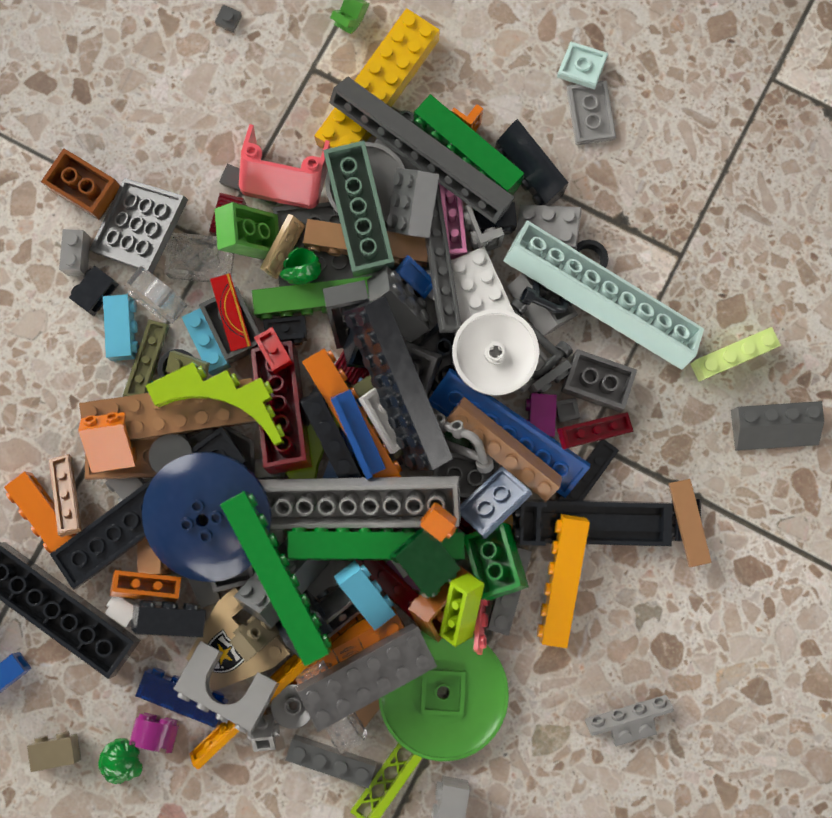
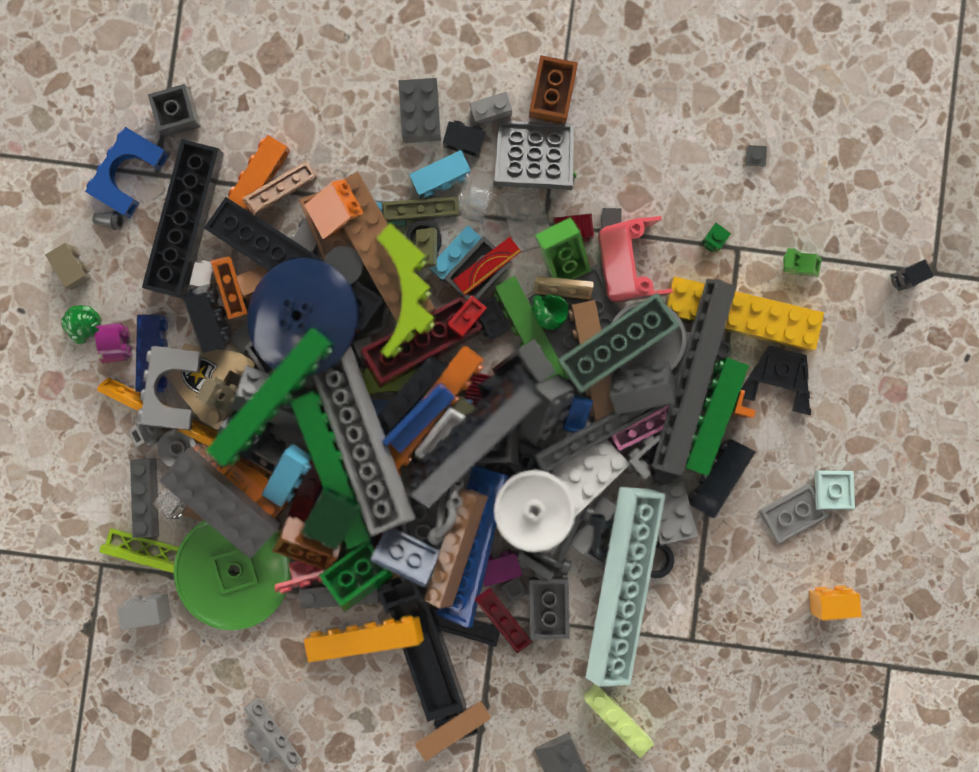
camera: 70 degrees right, 5 degrees up
(23, 690) = (110, 220): none -> dark grey cone
(45, 323) = (419, 110): none -> dark grey brick
(293, 85) = (715, 238): none -> green bracket
(439, 522) = (366, 517): orange brick -> none
(449, 68) = (783, 370): none -> black wing
(461, 609) = (304, 562): lime brick -> none
(692, 102) = (835, 603): none -> light orange brick

